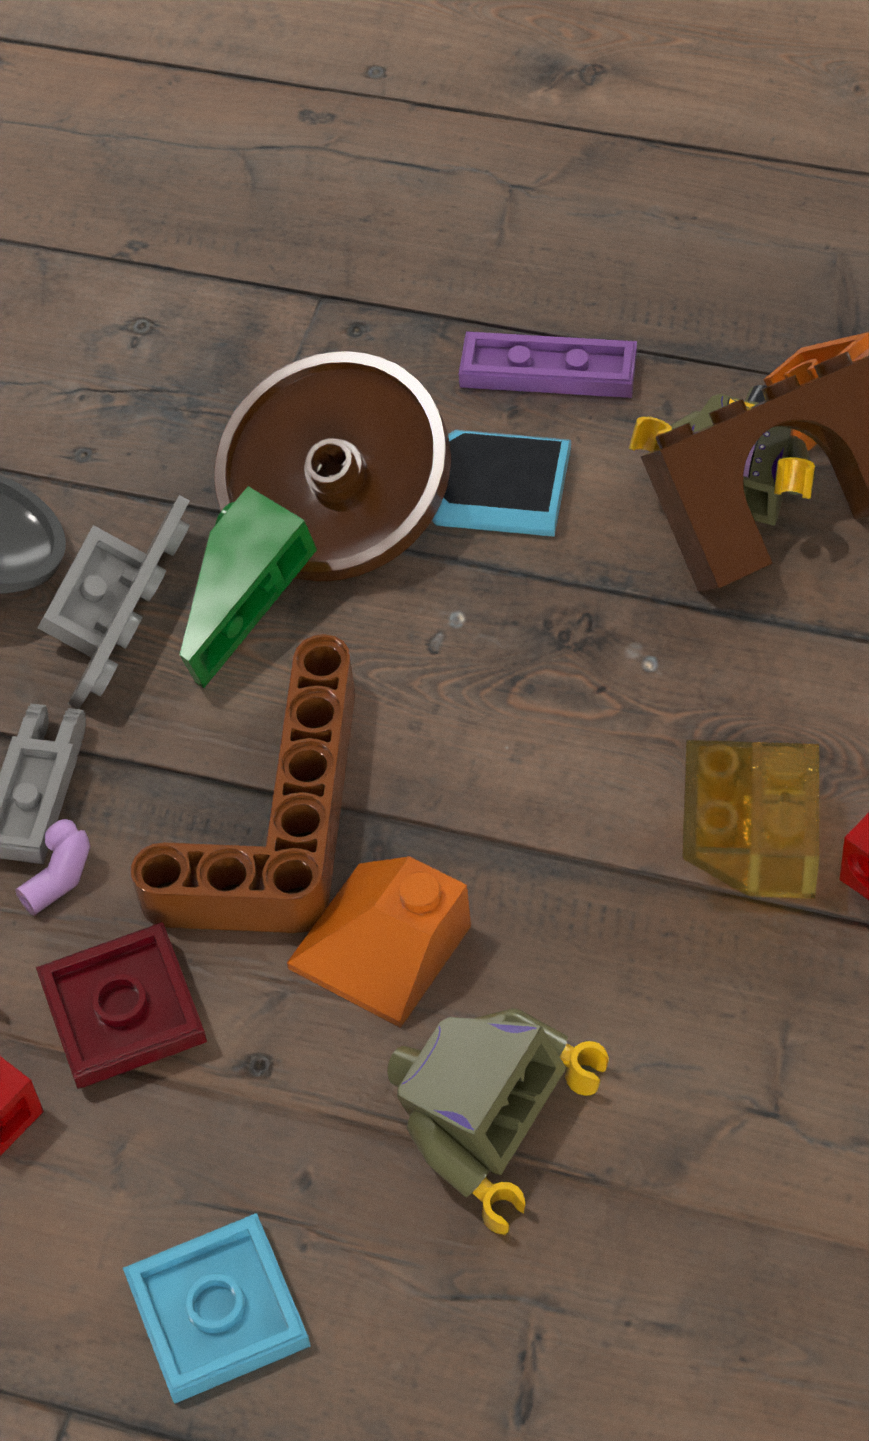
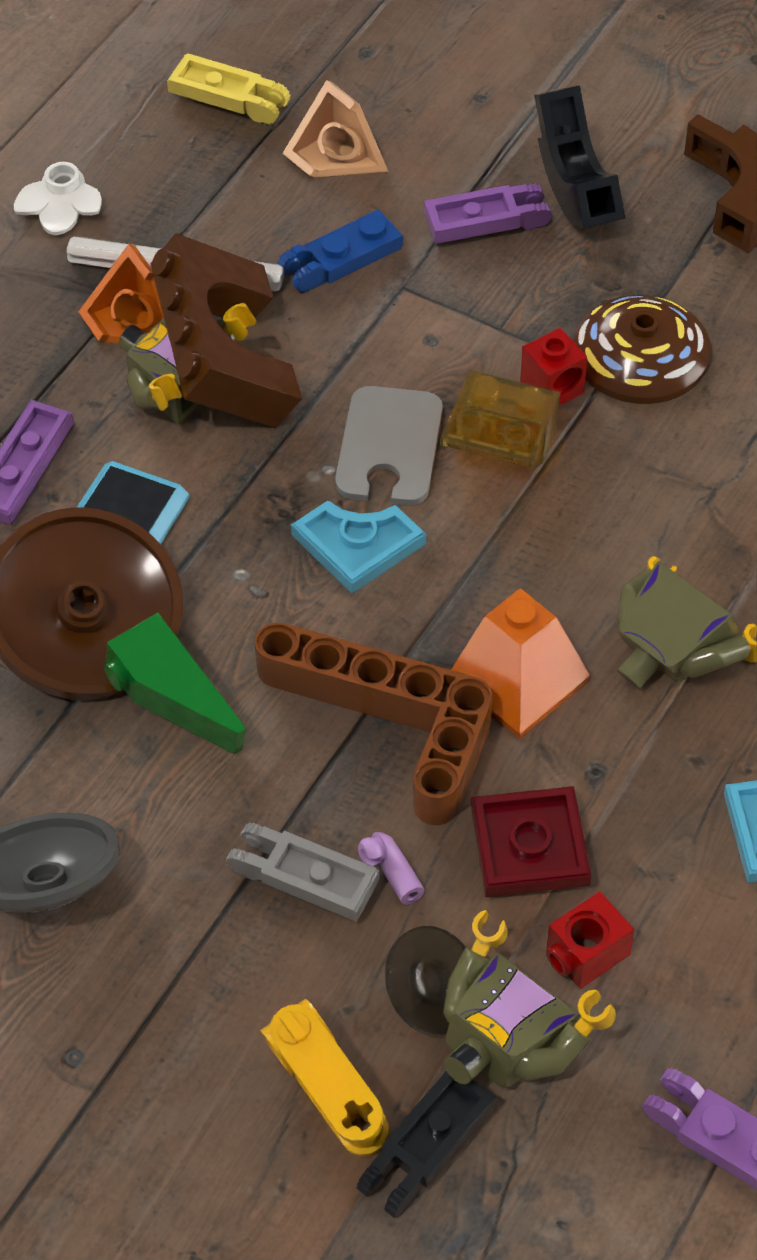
camera: 80 degrees left, 0 degrees up
(100, 593) = (143, 783): light grey bracket -> none
(534, 719) = (356, 544): none -> medium azure tile
(710, 700) = (393, 433): none -> light grey piece

